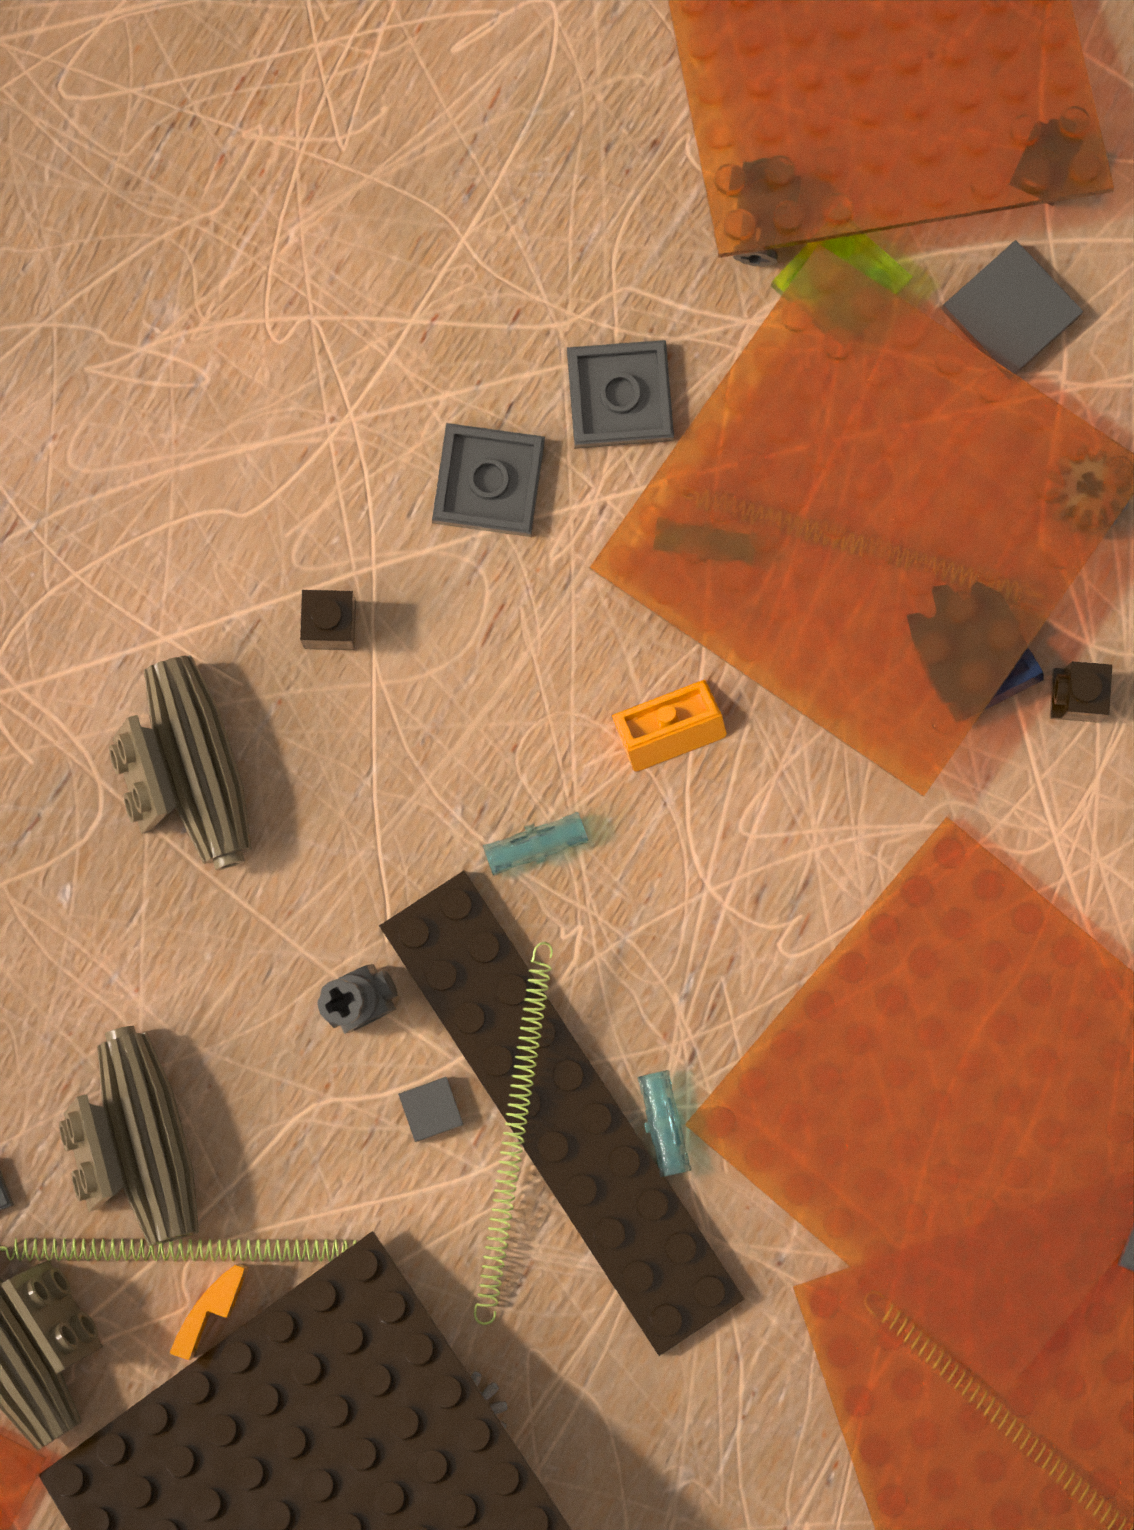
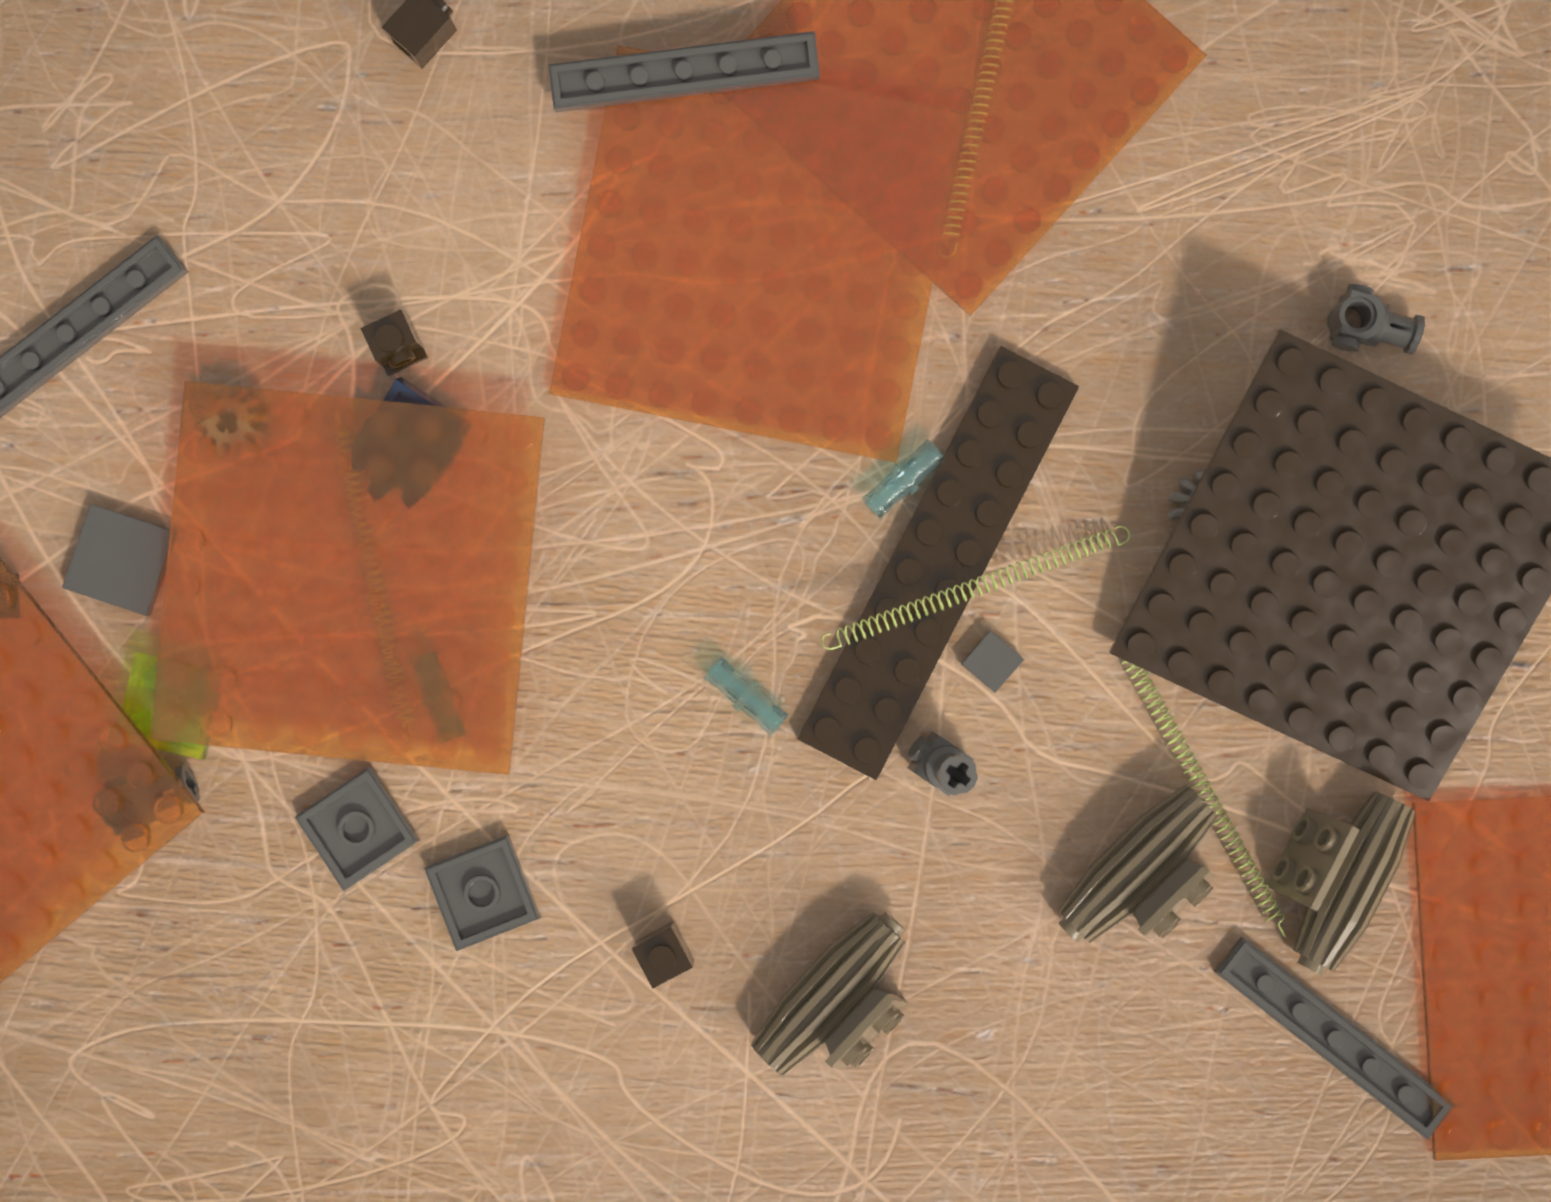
camera: 120 degrees left, 5 degrees up
(218, 1299) = (1228, 740): light orange slope -> none
(670, 725) = (596, 644): light orange slope -> none

